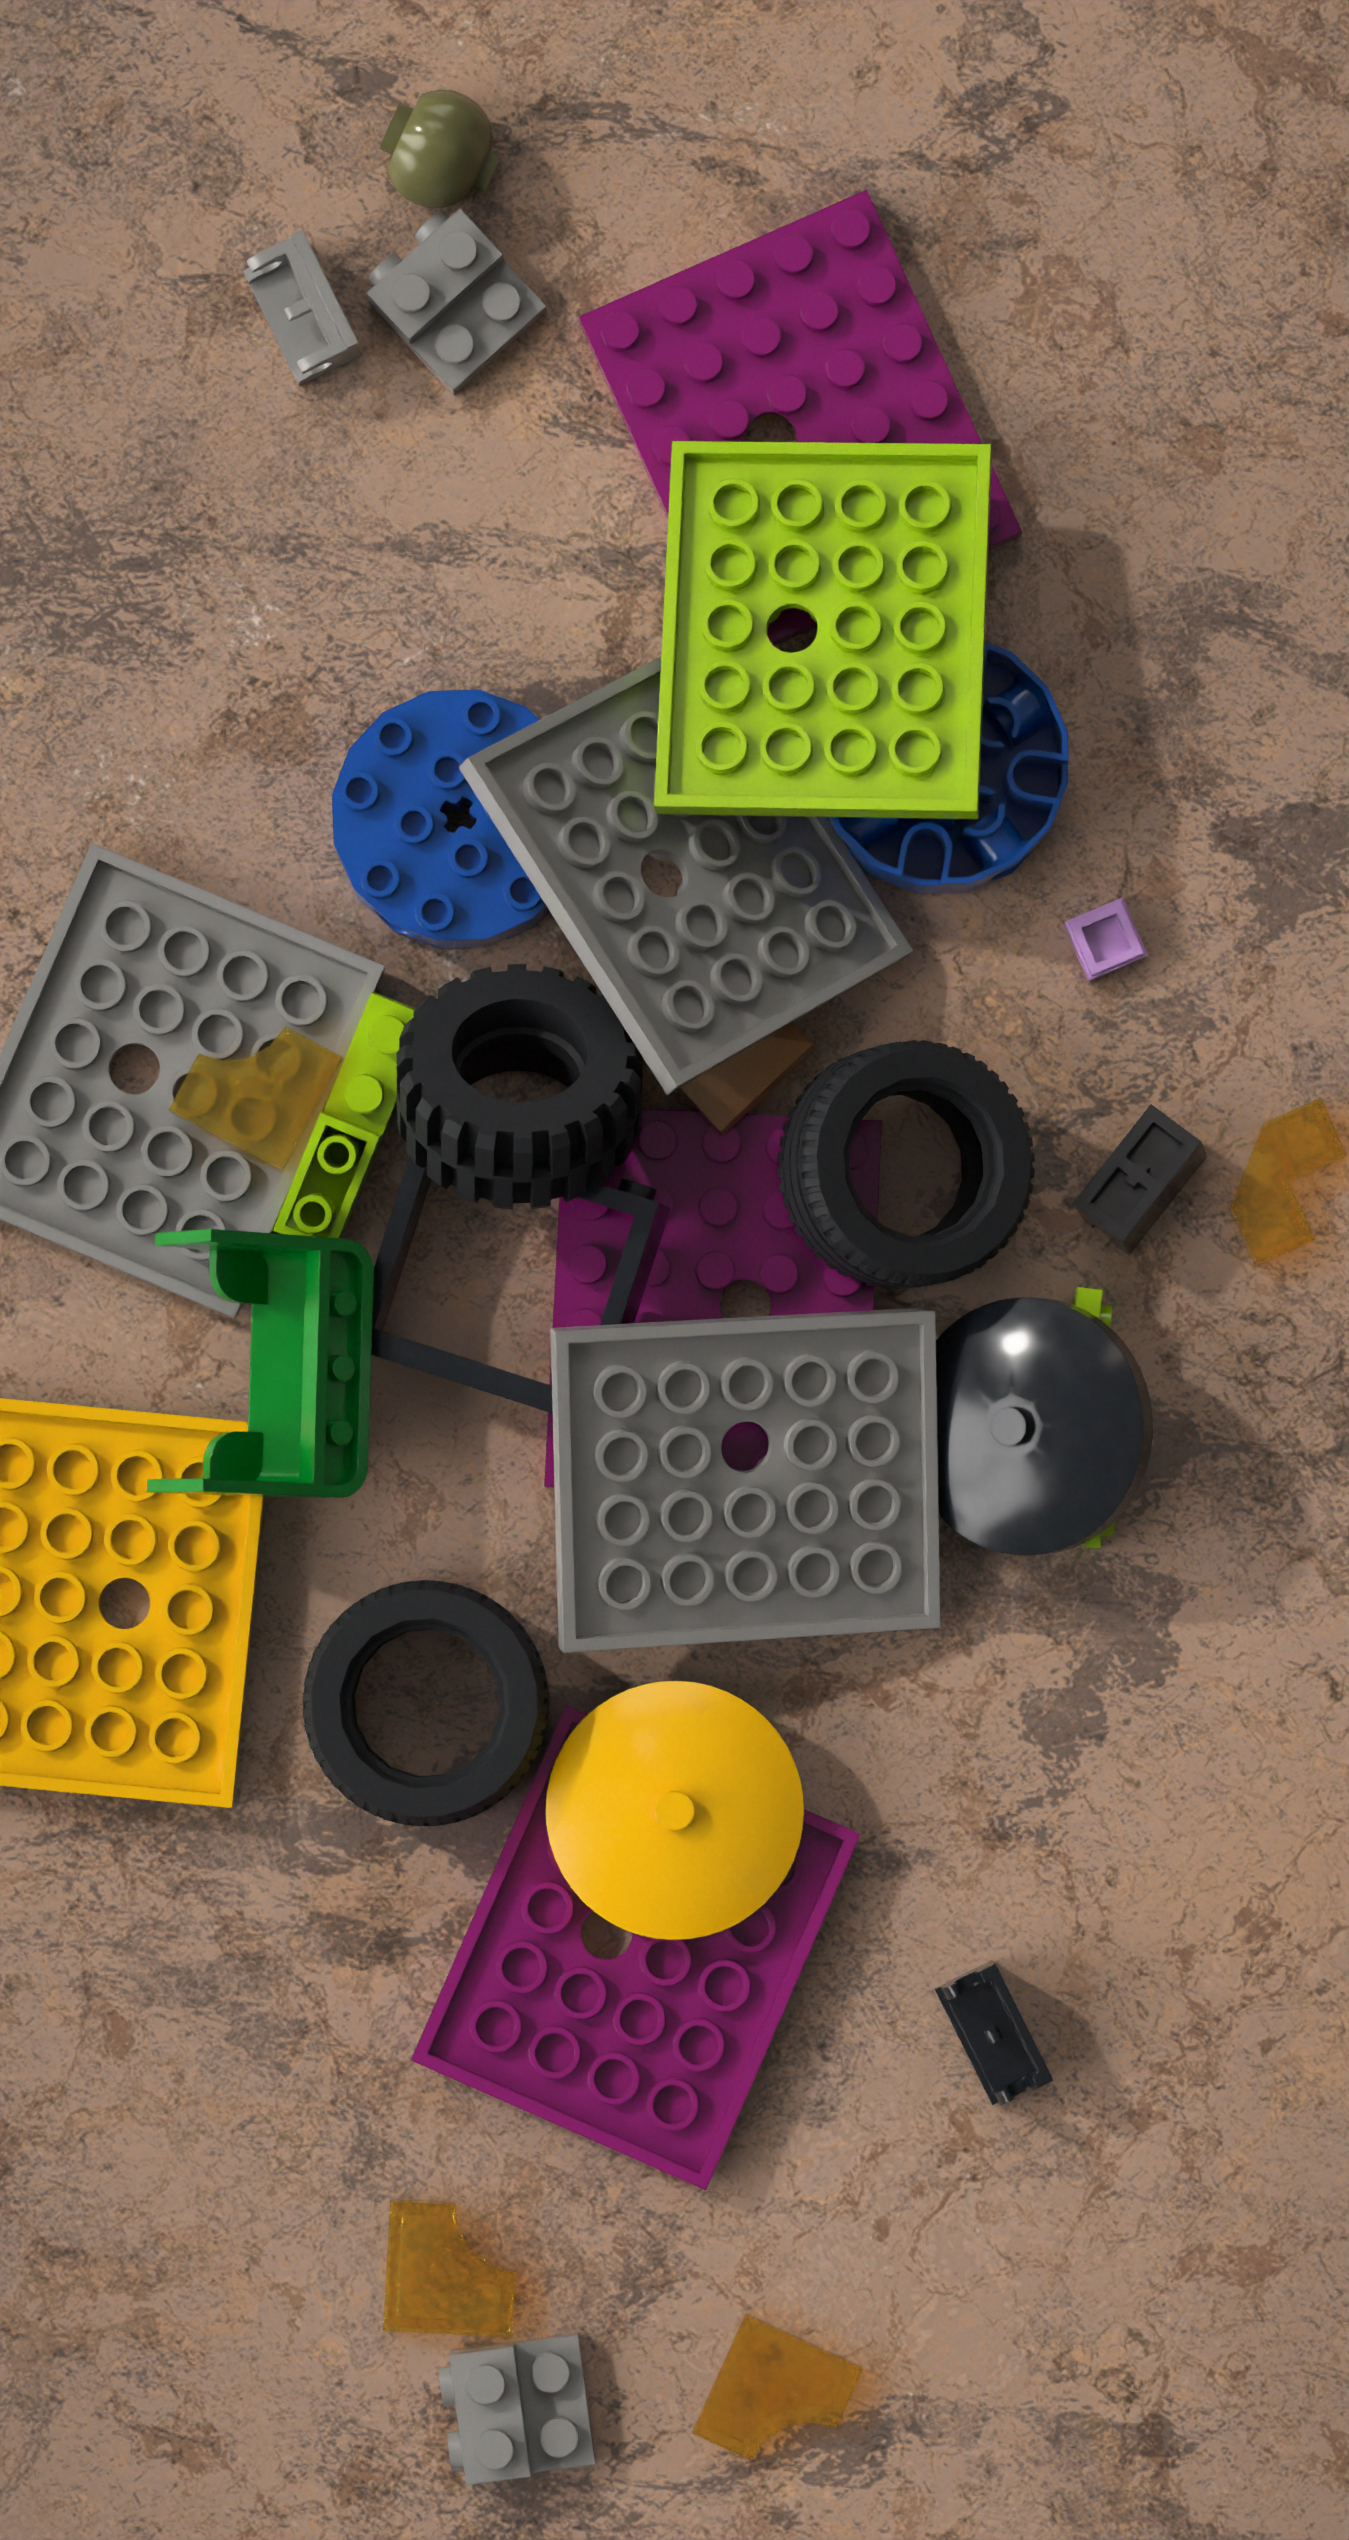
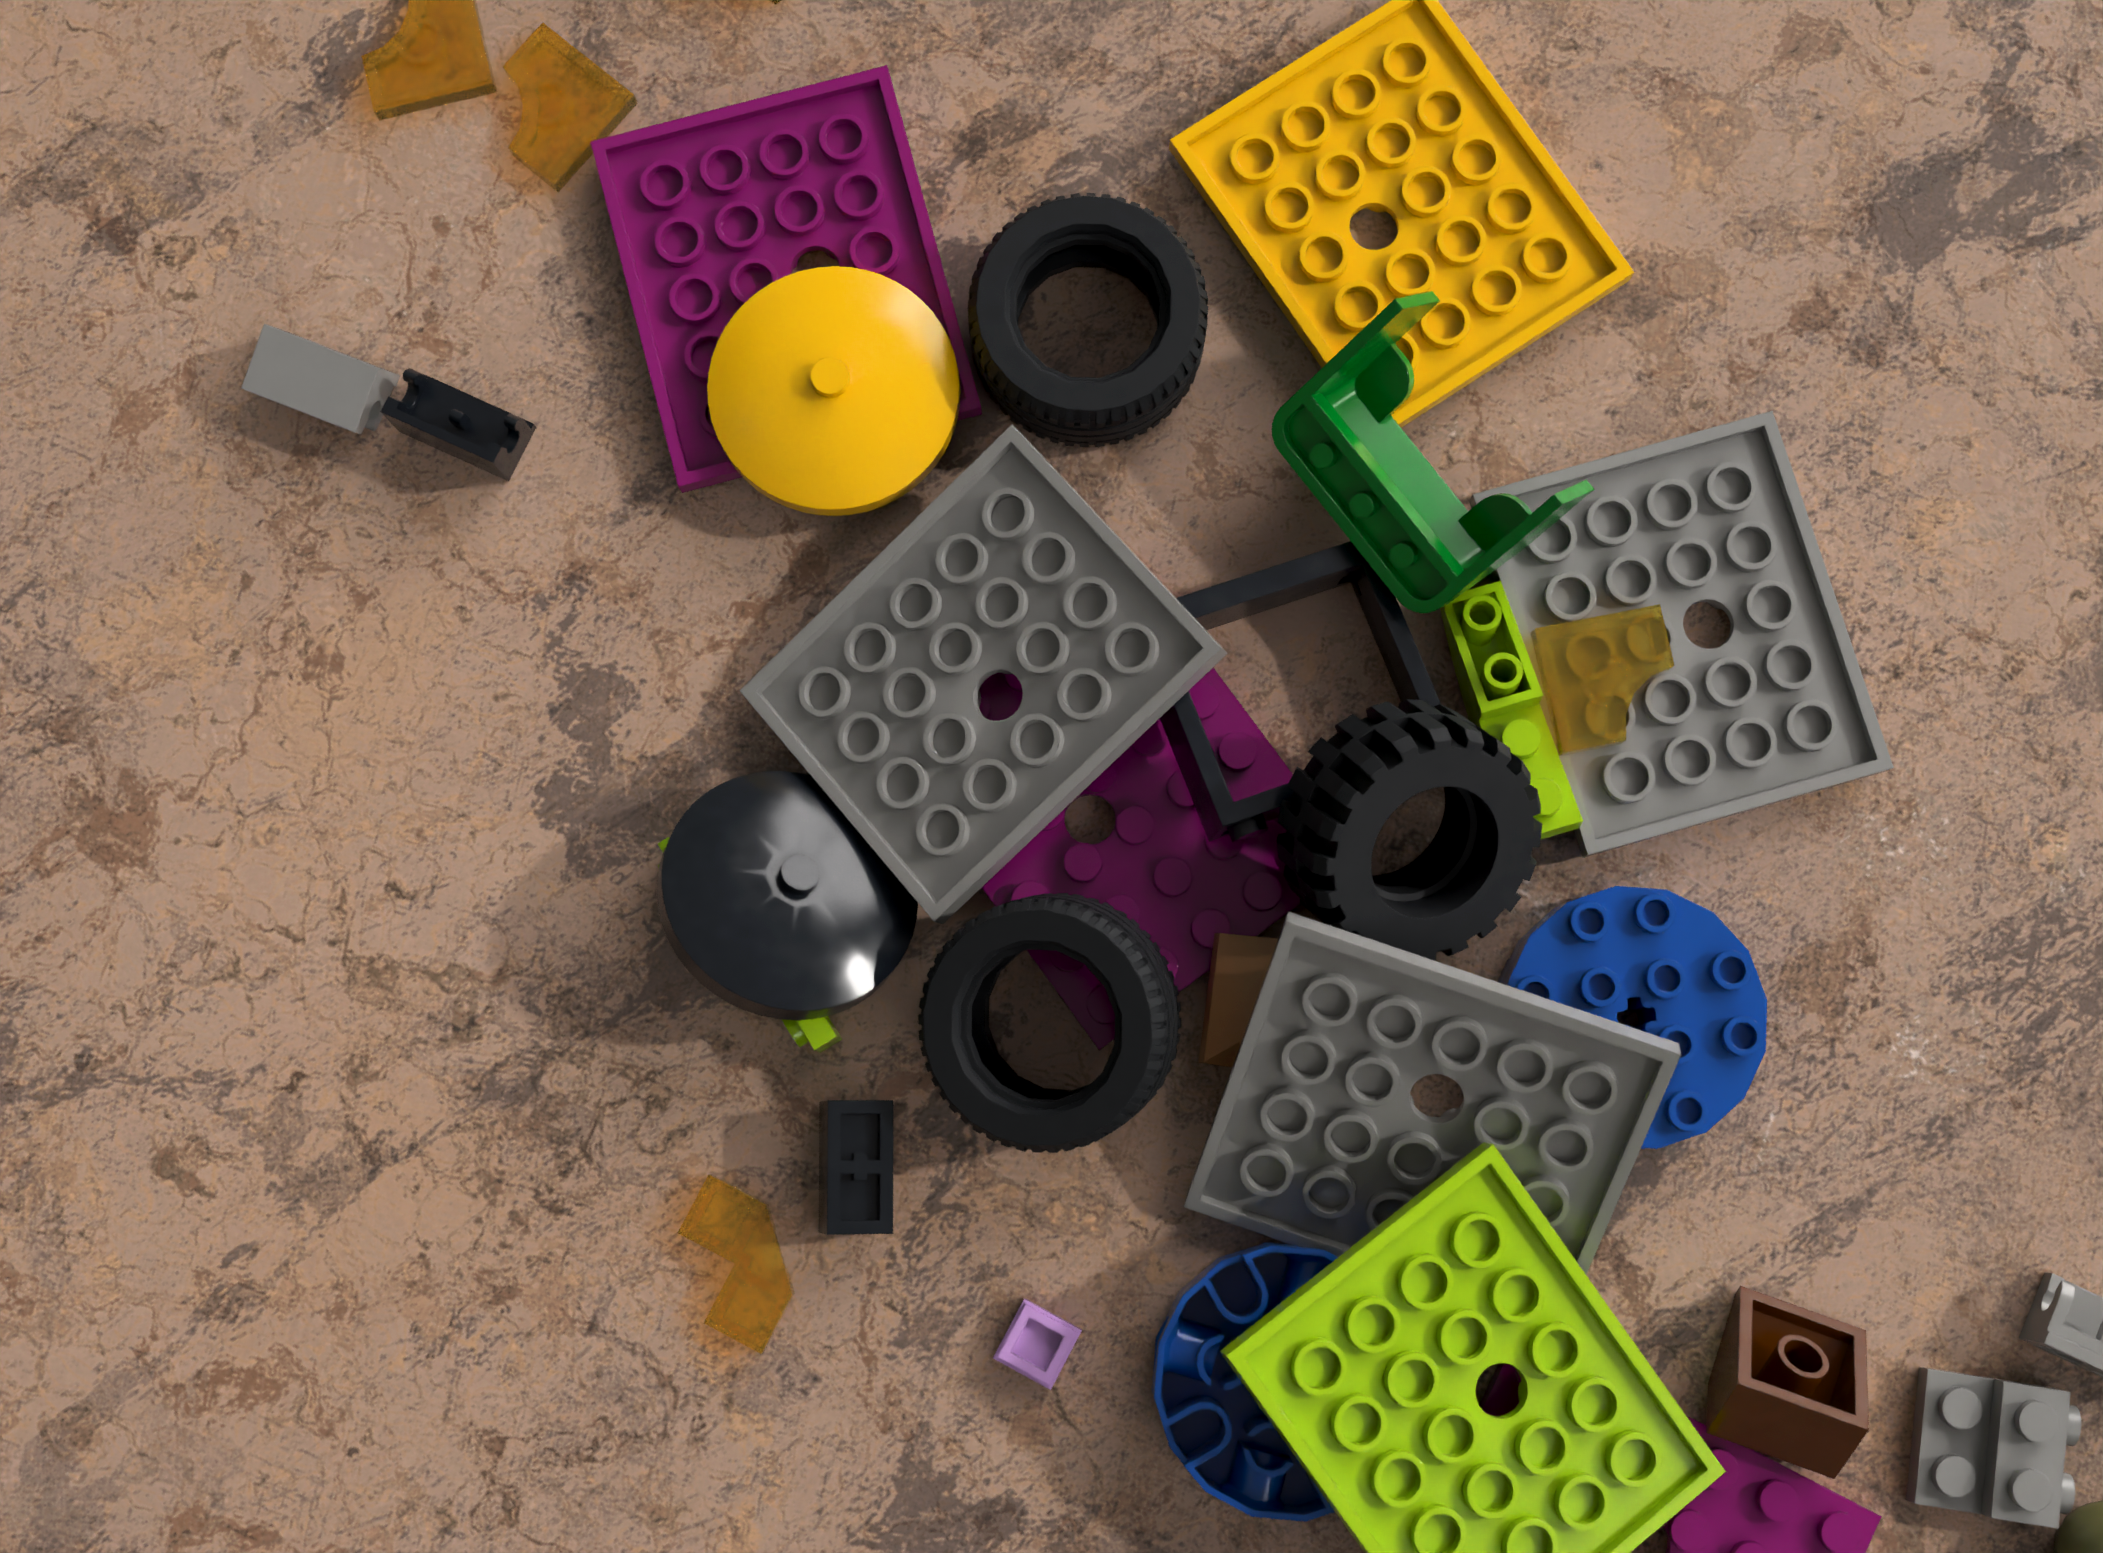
camera: 145 degrees right, 5 degrees down
(565, 463) = (1789, 1383): none -> reddish brown slope
(698, 2248) = (564, 106): none -> clear yellow tile
(1081, 2161) = (318, 380): none -> light grey hinge

